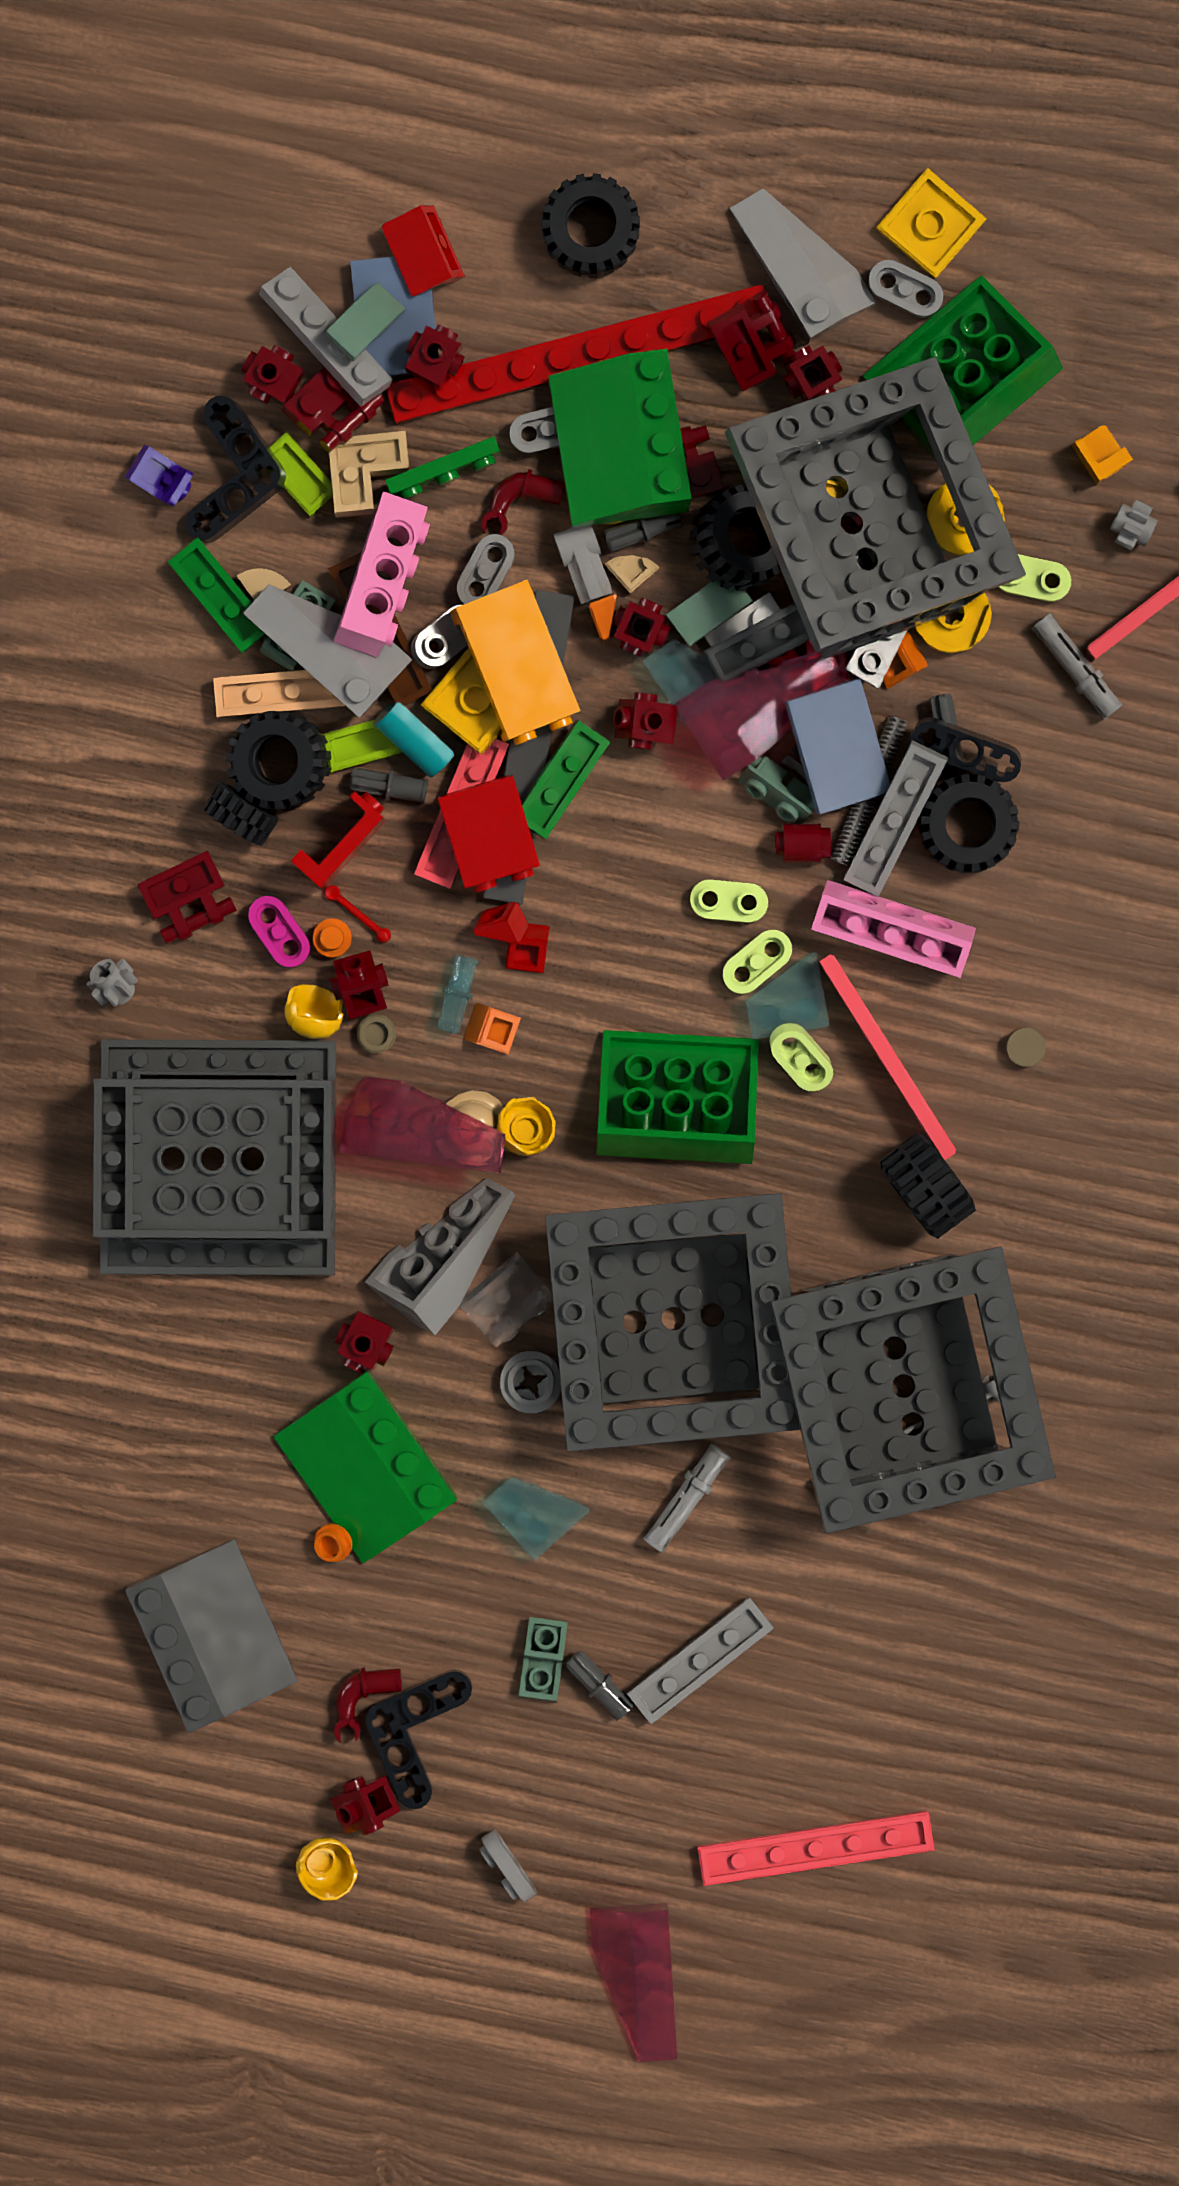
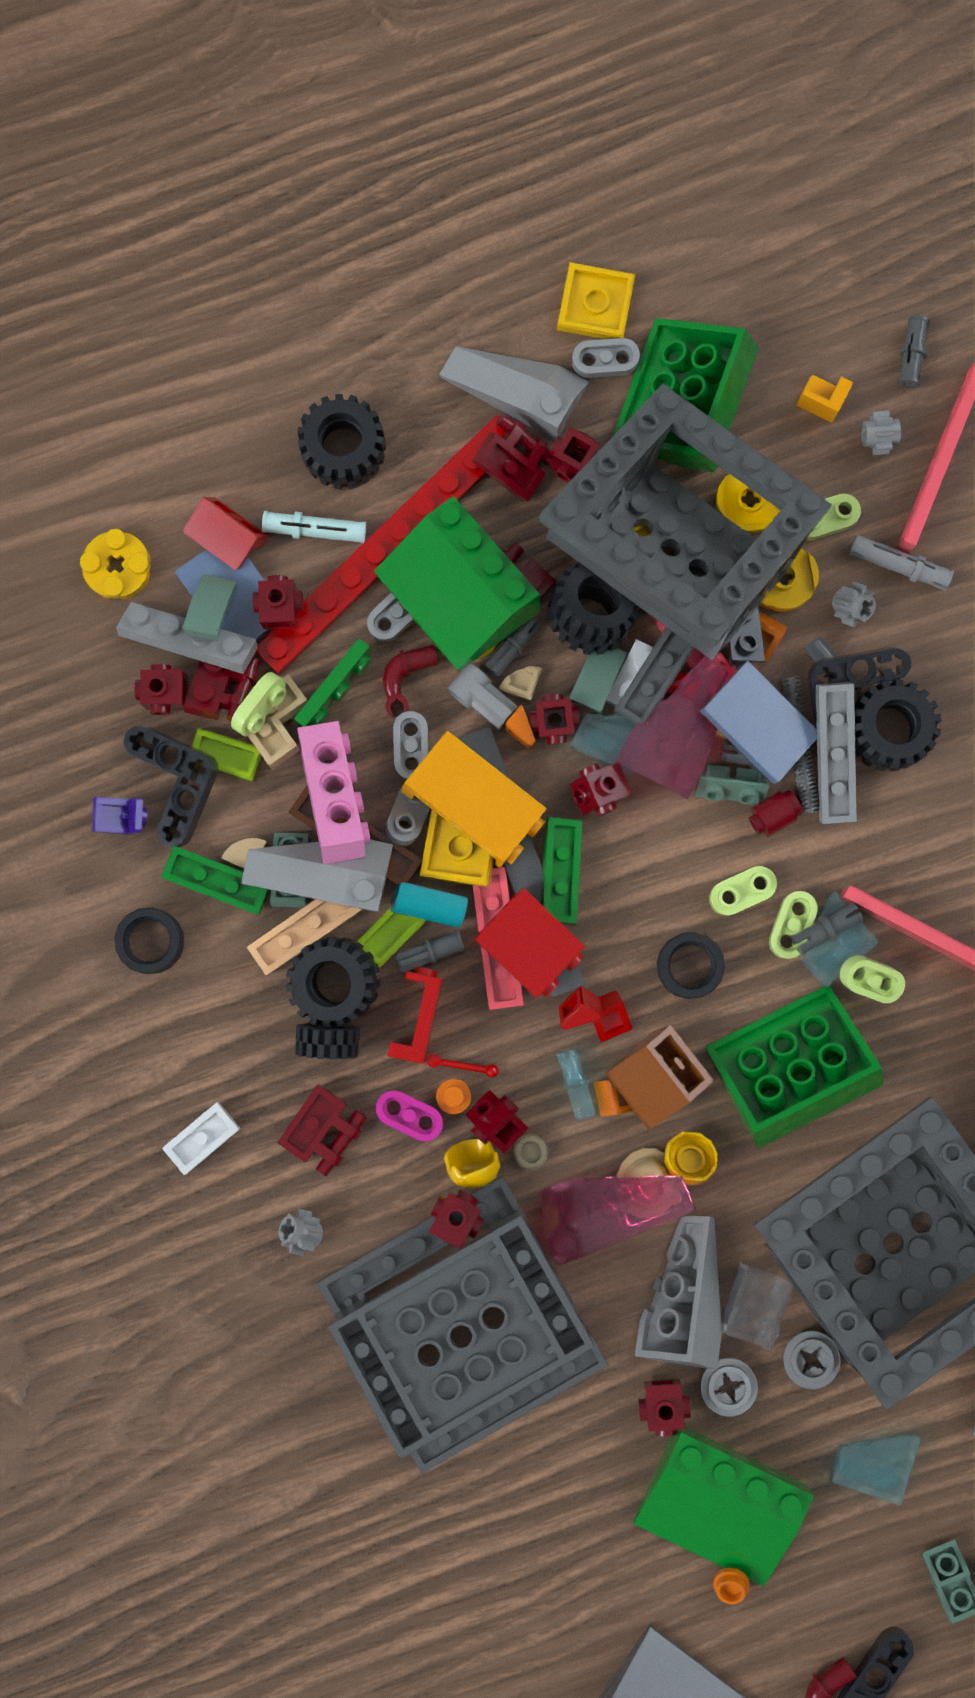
camera: 25 degrees left, 5 degrees down
(66, 838) = (201, 1138): none -> white plate
(111, 589) = (122, 942): none -> black tyre
(253, 1052) = (454, 1232): none -> dark red brick
(315, 231) = (135, 564): none -> yellow plate
(371, 441) = (262, 698): none -> yellowish green plate
(449, 1376) = (744, 1392): none -> light grey gear
(477, 267) = (273, 523): none -> light aqua pin
(540, 1031) = (659, 1076): none -> dark orange slope
(634, 914) = (713, 952): none -> black tyre
(785, 982) = (827, 928): none -> dark grey pin
(894, 928) = (885, 838): bright pink brick -> none
(1003, 681) = (854, 604): none -> light grey gear

